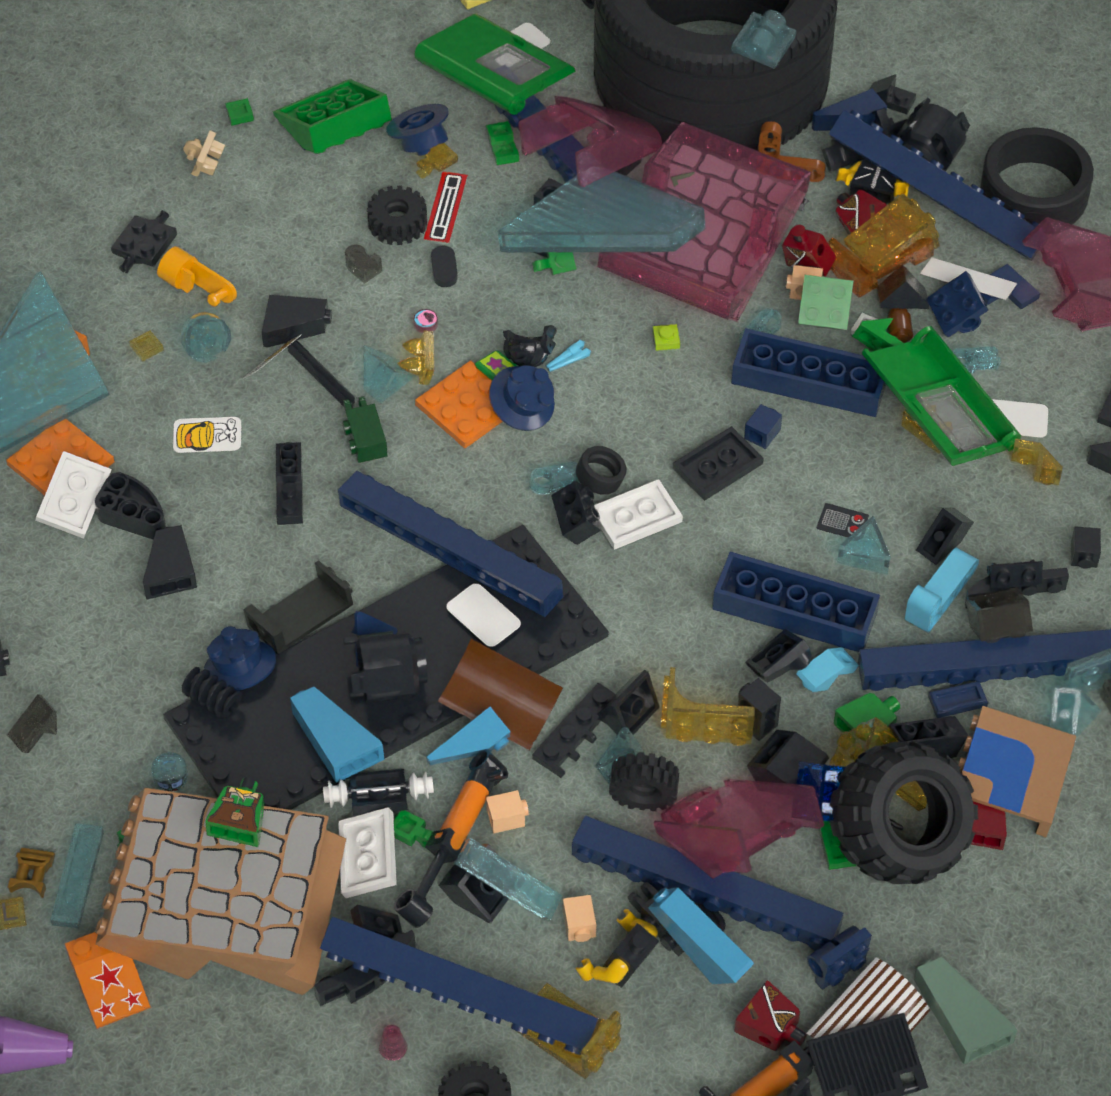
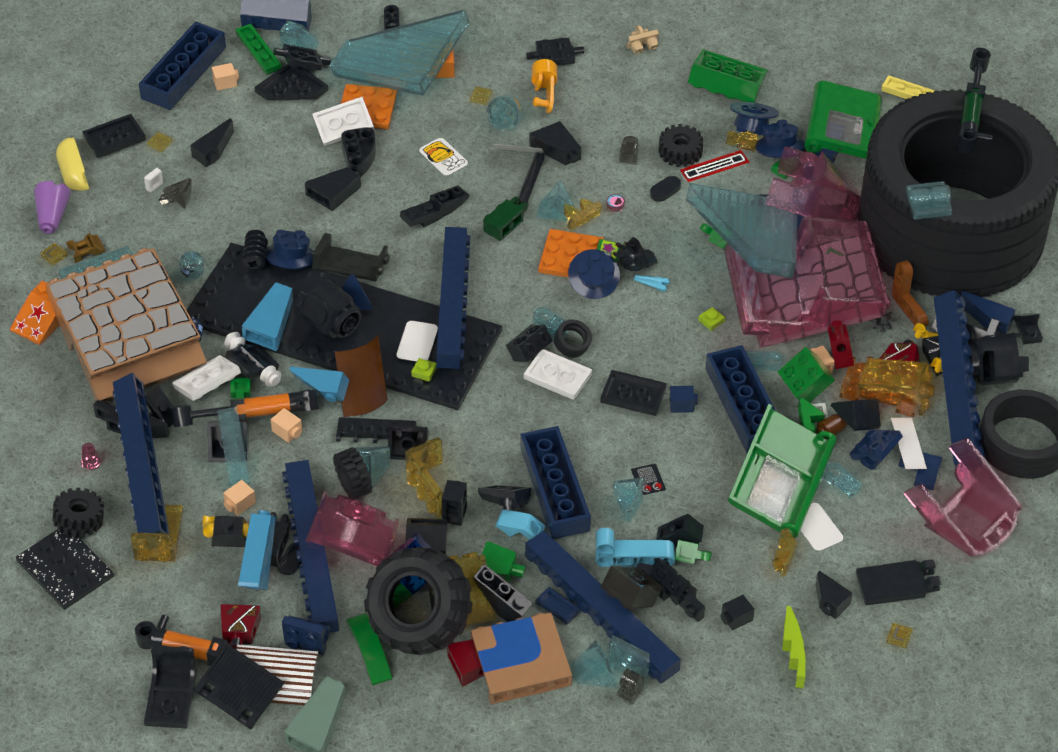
camera: 55 degrees right, 5 degrees down
(237, 814) = (164, 293): torso -> none
(239, 112) = (691, 37): green plate -> none
(473, 129) = (778, 136): none -> dark blue piece
(535, 631) = (424, 369): none -> lime plate
(890, 904) = (370, 649): none -> green slope
(976, 539) = (689, 552): none -> plate

